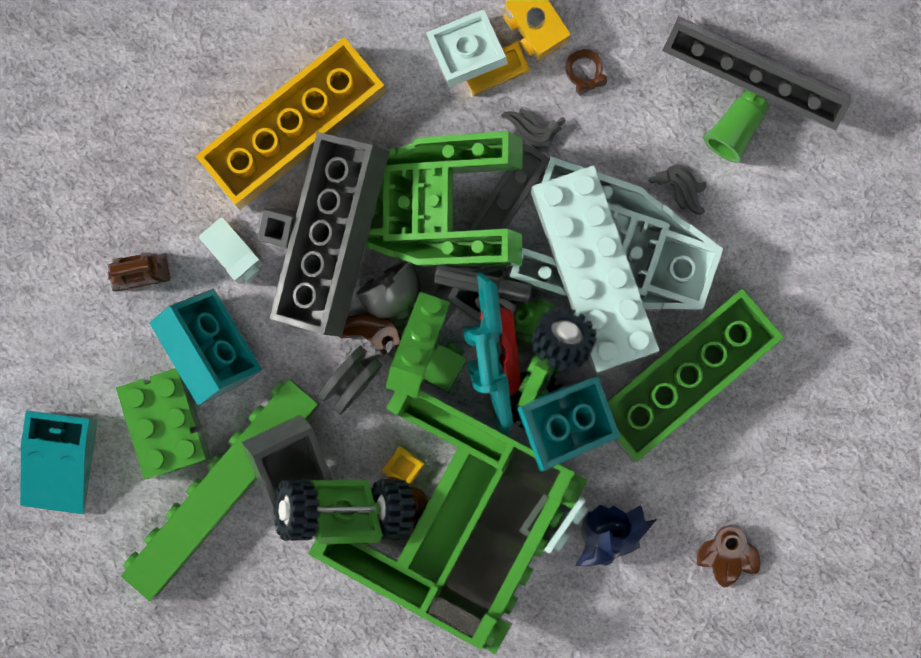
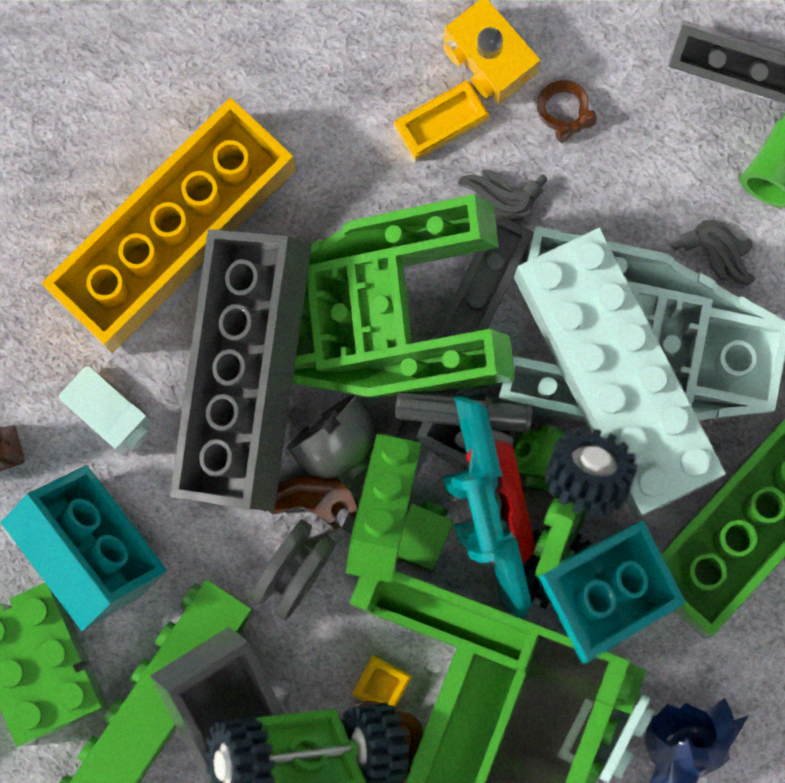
camera: 10 degrees left, 5 degrees down
(276, 226) = (165, 368): dark grey brick -> none
(466, 48) = (399, 96): light aqua plate -> none

